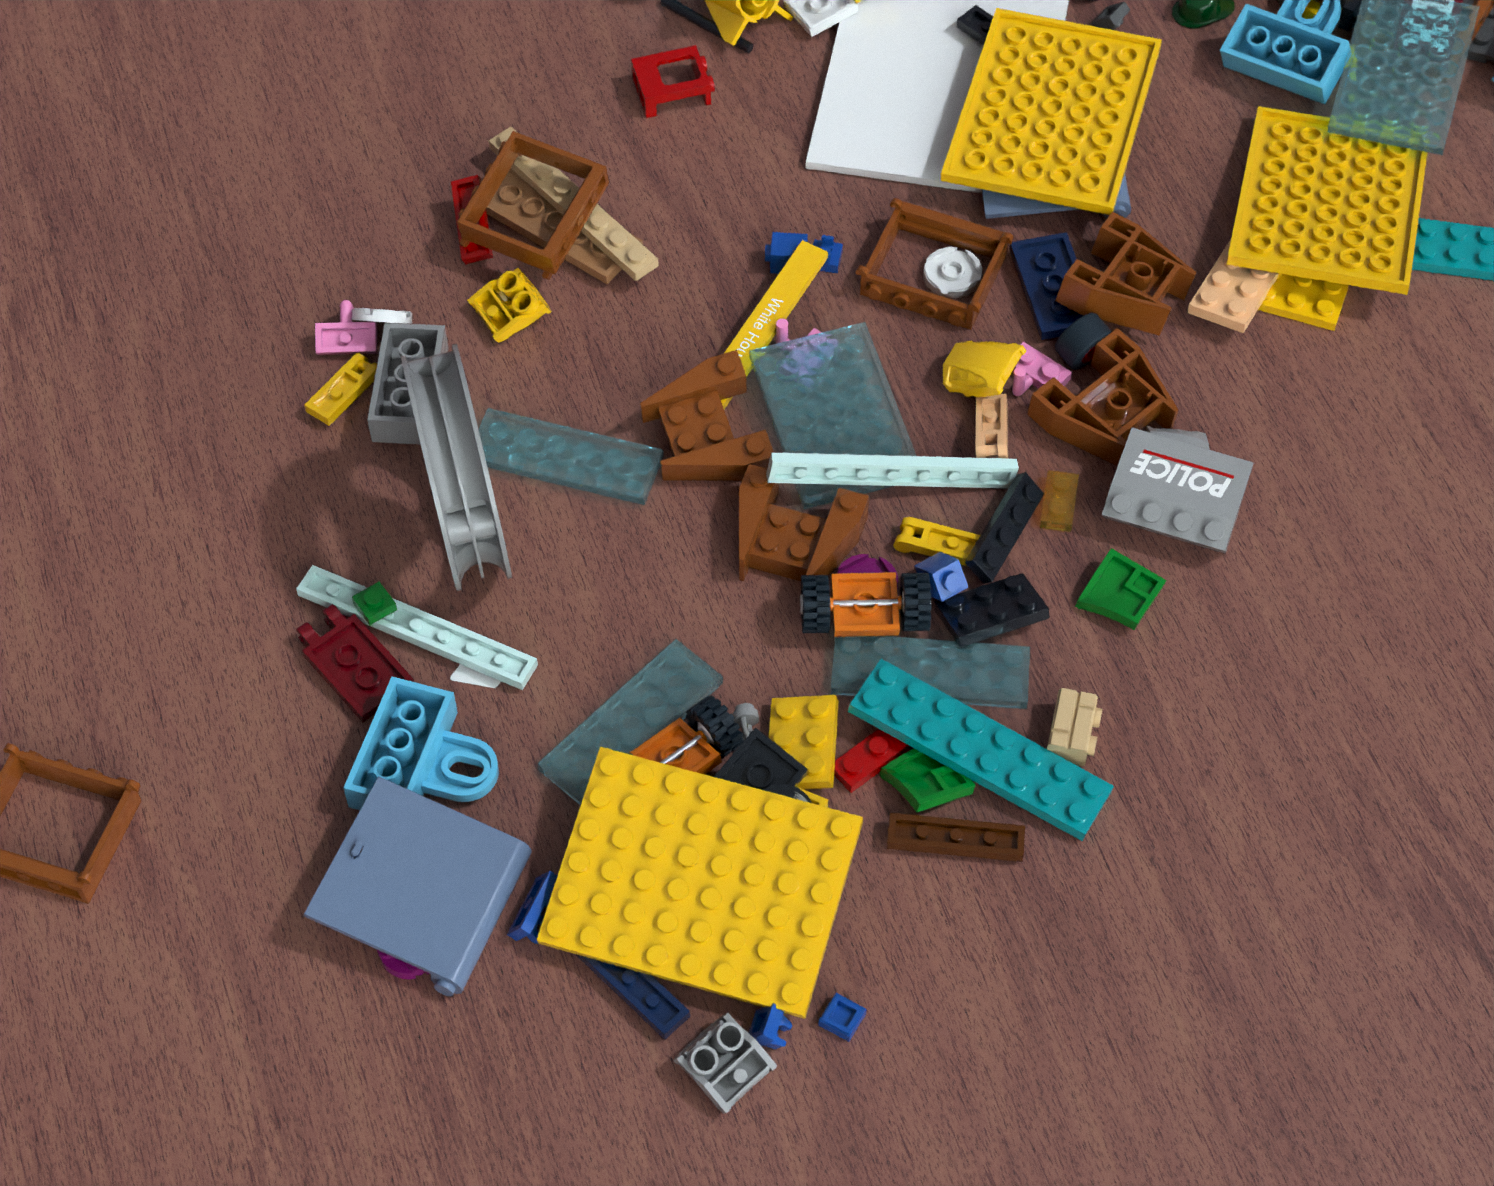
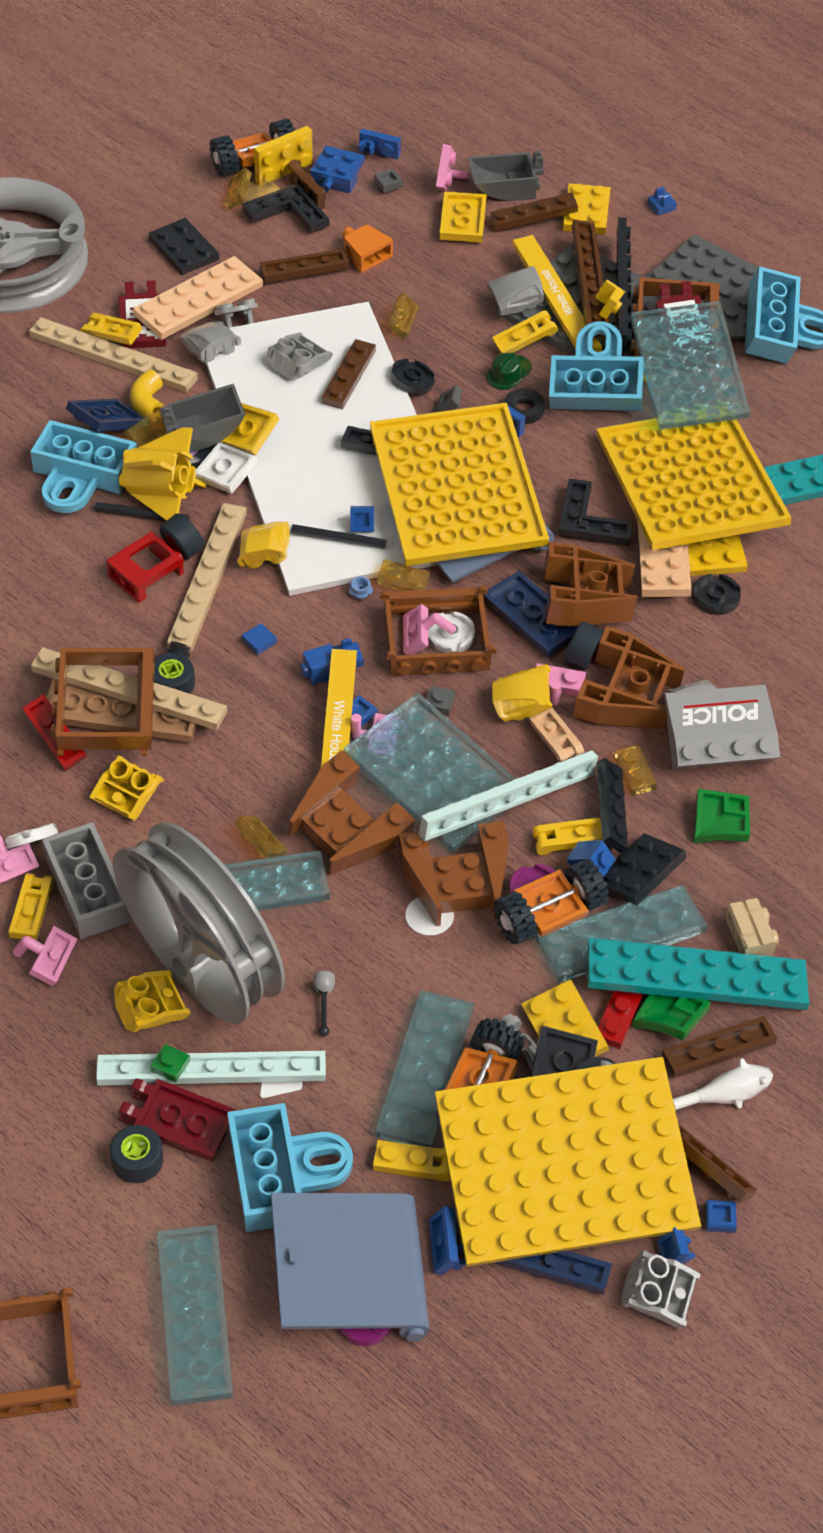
camera: 30 degrees left, 5 degrees down
(246, 865) = (194, 1315): none -> clear light blue plate
(289, 680) = (136, 1142): none -> black wheel
(330, 445) = (51, 954): none -> bright pink plate
(397, 532) = (149, 1001): none -> yellow slope
(548, 805) = (410, 1160): none -> yellow plate
(581, 590) = (323, 984): none -> hinge
(612, 410) = (260, 836): none -> clear yellow plate
(628, 204) = (174, 672): none -> black wheel
(649, 182) = (177, 647): none -> black plate
(725, 62) = (182, 535): none -> black wheel
(726, 568) = (421, 922): none -> white sticker
(730, 117) = (208, 575): none -> tan plate
(743, 202) = (259, 639): none -> blue tile
(802, 320) = (363, 708): none -> blue tile
(808, 102) = (264, 543): none -> yellow slope
(863, 954) = (715, 1168): none -> reddish brown plate
(884, 187) = (360, 587): none -> medium blue plate
(893, 123) = (338, 536): none -> black bar
(893, 341) = (441, 699): none -> dark grey plate
(913, 254) = (416, 628): none -> bright pink plate
(927, 112) = (361, 518): none -> blue tile
(934, 193) = (402, 577): none -> clear yellow plate
(937, 885) = (730, 1087): none -> white piece
(1168, 65) = (518, 421): none -> blue tile
(1170, 206) = (578, 524): none -> black plate
(1190, 65) = (527, 396): none -> black tyre
(1280, 343) = (716, 594): none -> black tile

